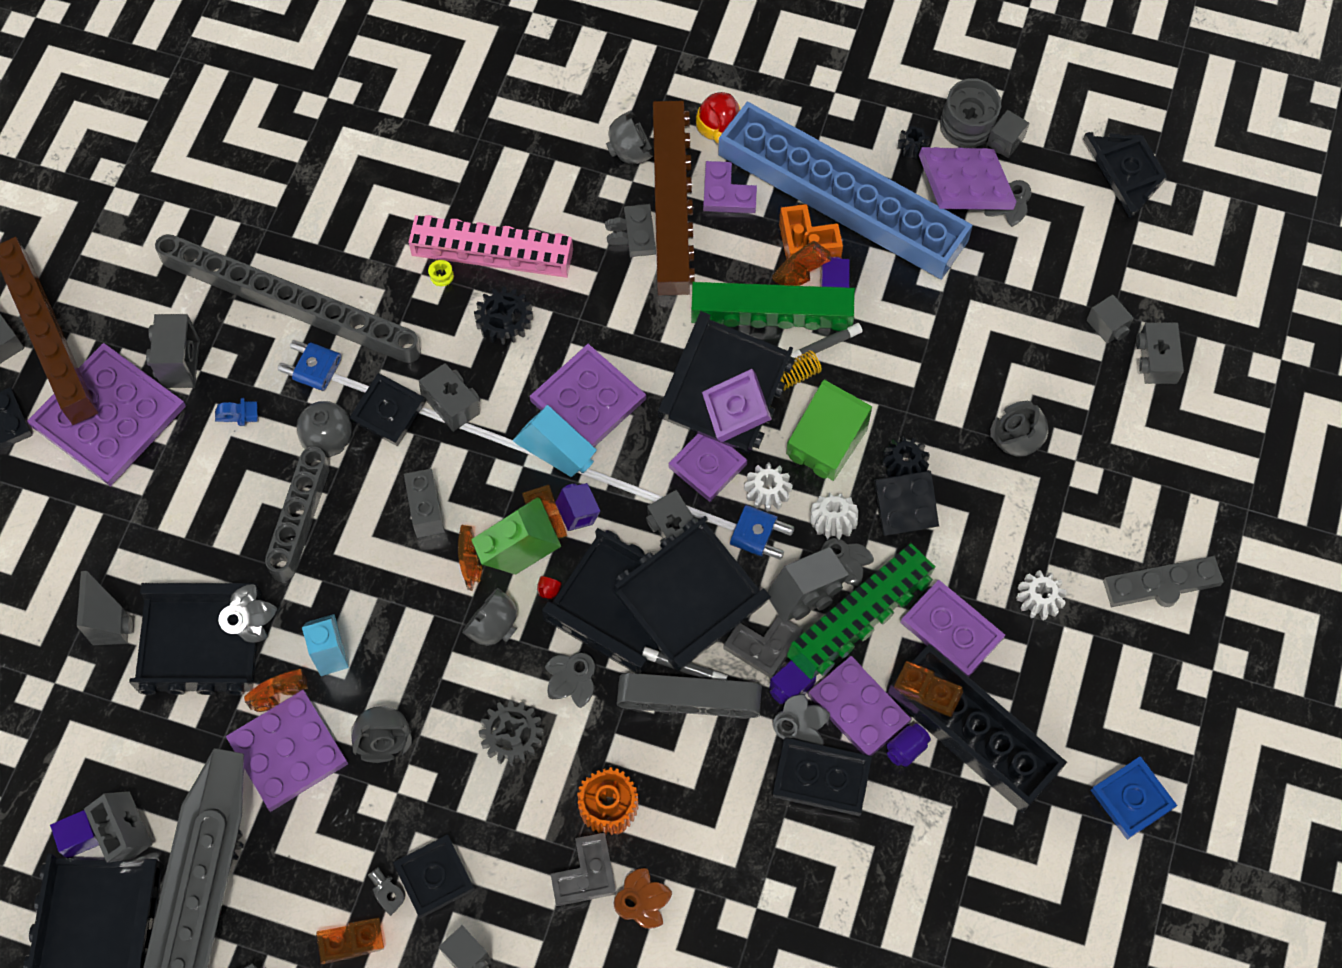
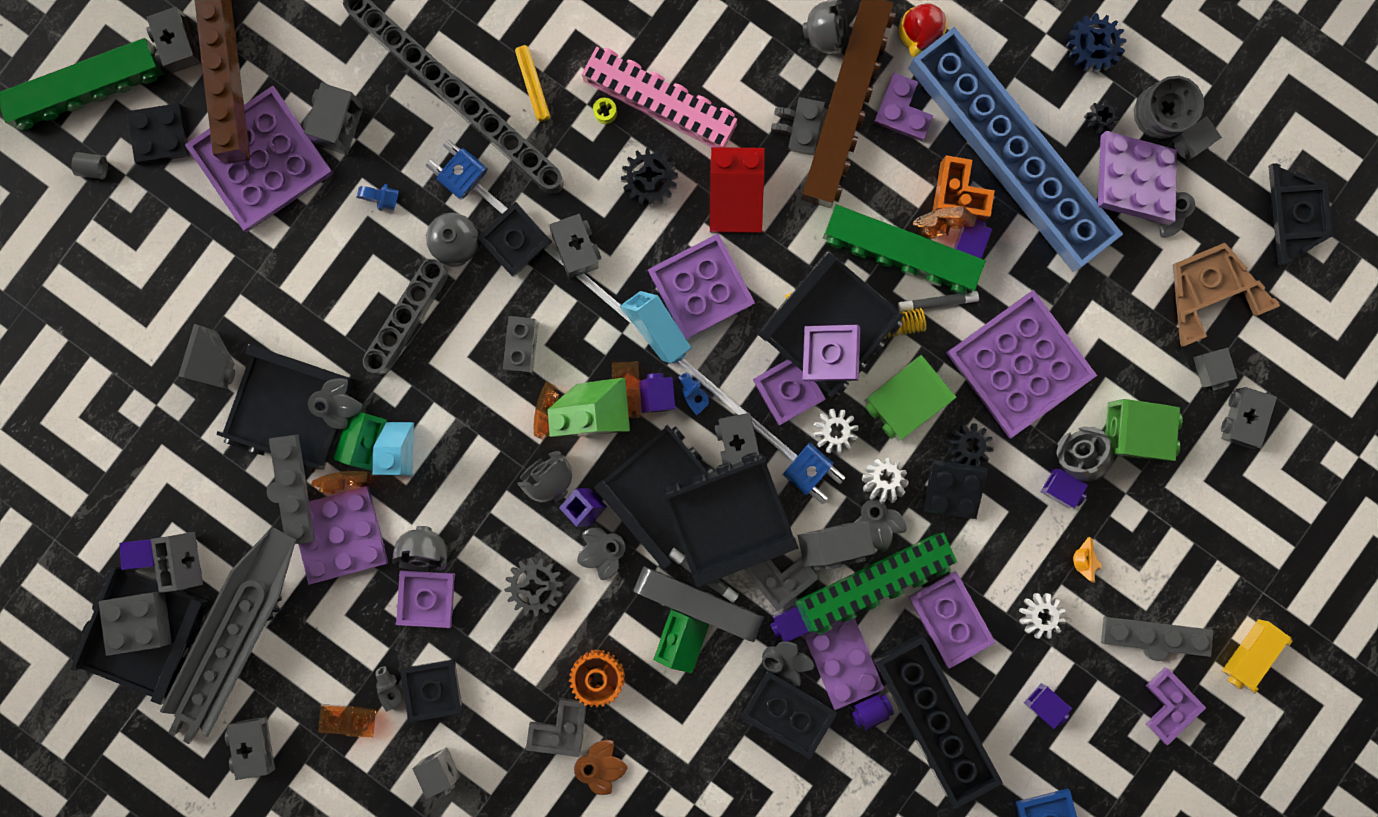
camera: 20 degrees right, 20 degrees up
(87, 903) = (135, 623): none -> dark grey brick
(223, 708) = (291, 488): none -> dark grey hinge
(284, 645) = (358, 439): none -> green panel
(362, 270) = (532, 83): none -> yellow axle
(399, 783) = (425, 599): none -> medium lavender plate
(537, 634) = (583, 507): none -> dark purple brick
(548, 587) = (607, 461): red hinge -> none
(592, 300) = (736, 190): none -> red slope
(610, 493) = (690, 391): none -> blue piece
(684, 739) = (681, 642): none -> green panel
(883, 84) = (1087, 34): none -> dark blue gear
(925, 372) = (1021, 364): none -> medium lavender plate
(927, 689) = (906, 680): clear orange slope -> none
(1013, 470) = (1064, 489): none -> dark purple brick
(1062, 529) = (1086, 560): none -> light orange piece
(1066, 391) = (1143, 429): none -> bright green slope
(1072, 246) = (1209, 279): none -> medium nougat wing
(1083, 681) = (1048, 706): none -> dark purple brick
(1213, 638) = (1179, 706): none -> medium lavender plate
(1266, 565) = (1255, 655): none -> yellow brick

